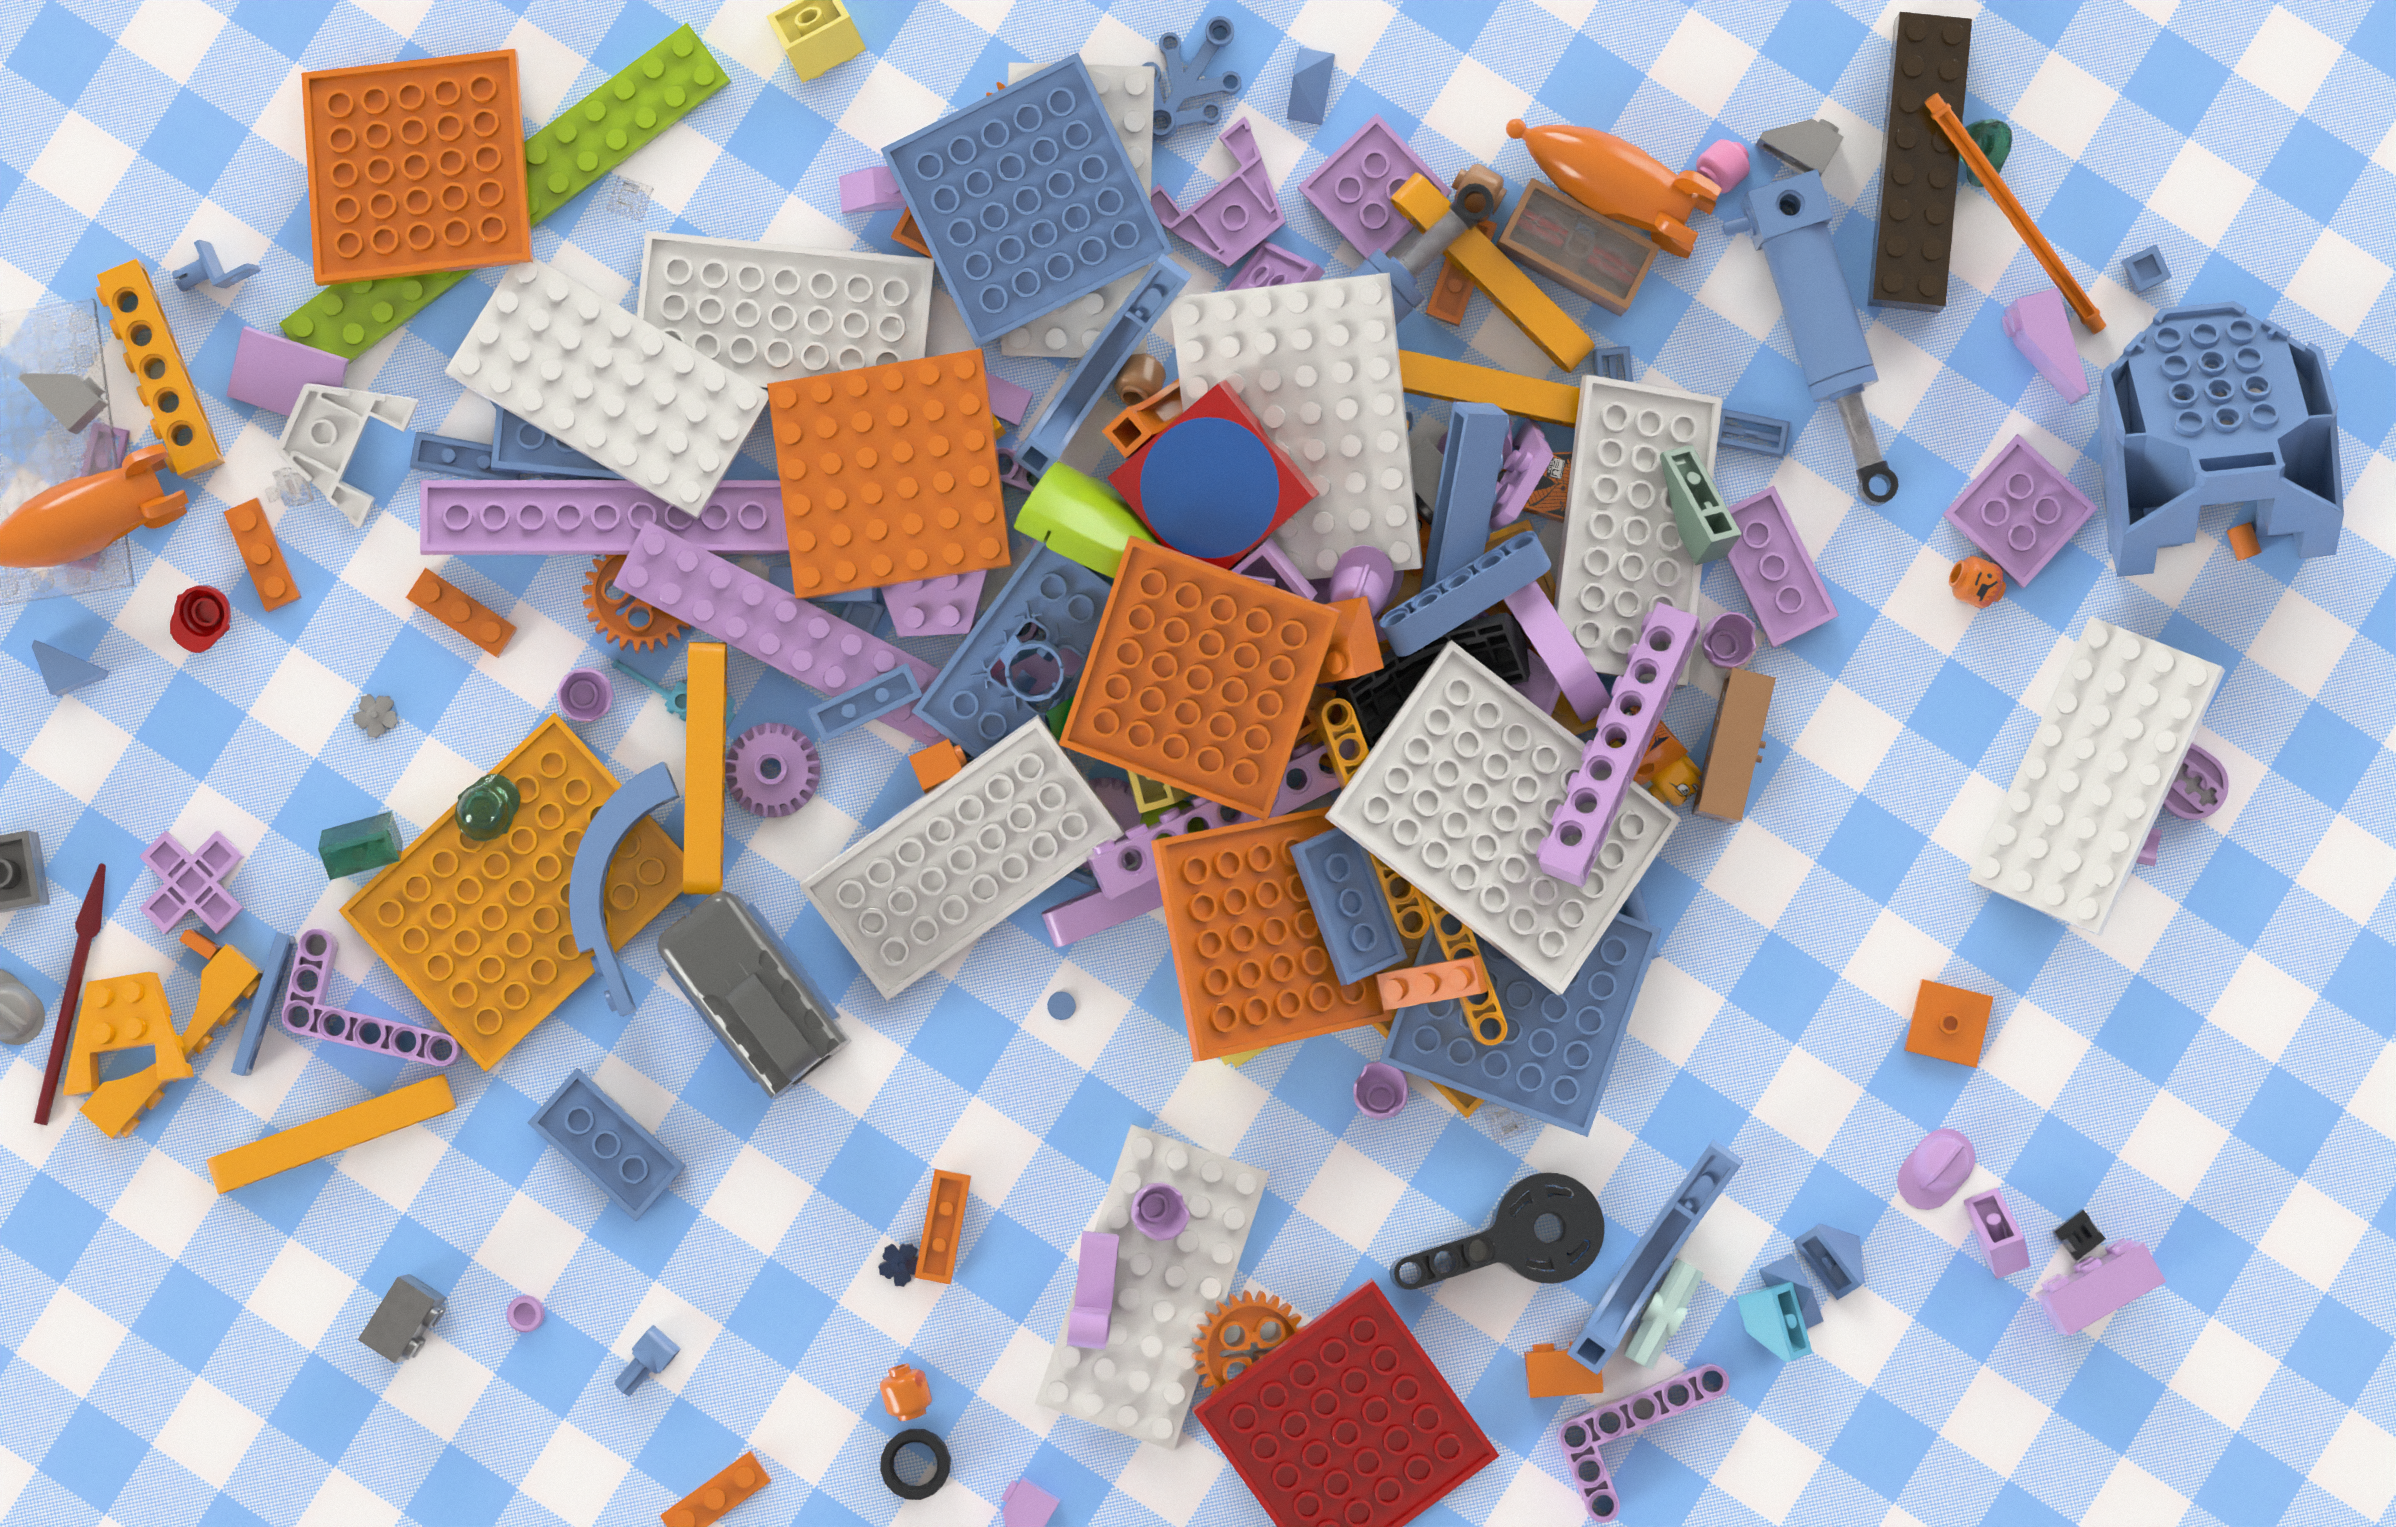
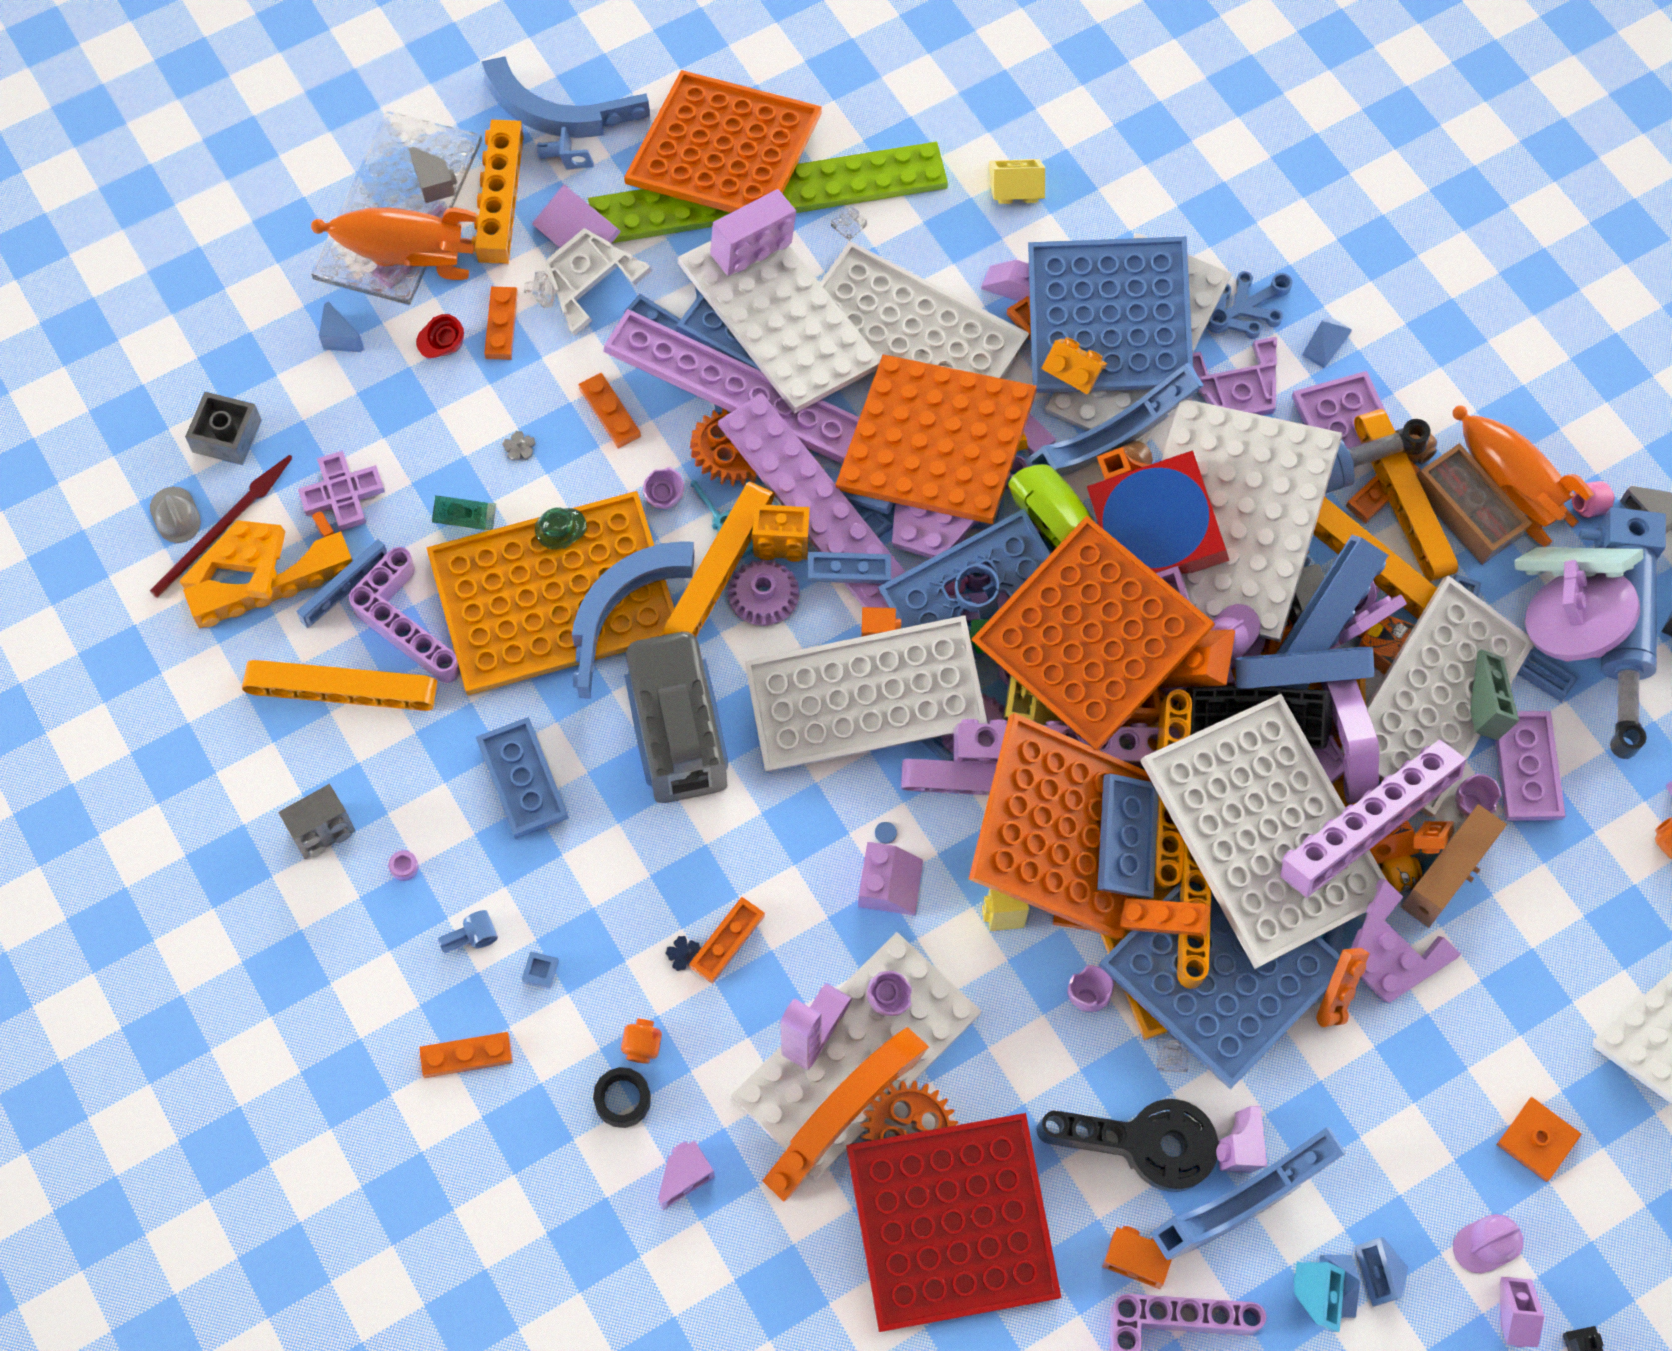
camera: 20 degrees right, 20 degrees down
(169, 226) = (551, 116): none -> medium blue arch
(528, 305) = (752, 232): none -> lavender brick
(748, 1363) = (540, 969): none -> medium blue plate
(759, 691) = (780, 532): none -> light orange bracket
(1015, 296) = (1074, 365): none -> light orange bracket
(1095, 1065) = (890, 879): none -> lavender slope
(1174, 1366) = (841, 1108): none -> orange arch
(1626, 1190) = (1245, 1145): none -> lavender arch
(1663, 960) = (1342, 987): none -> orange plate
(1663, 1314) = (1233, 1251): light aqua piece -> none
(1696, 724) = (1433, 836): none -> orange plate
(1700, 896) = (1392, 962): none -> lavender wing
(1735, 280) = (1591, 560): none -> light aqua tile
(1765, 351) = (1581, 614): none -> lavender bracket

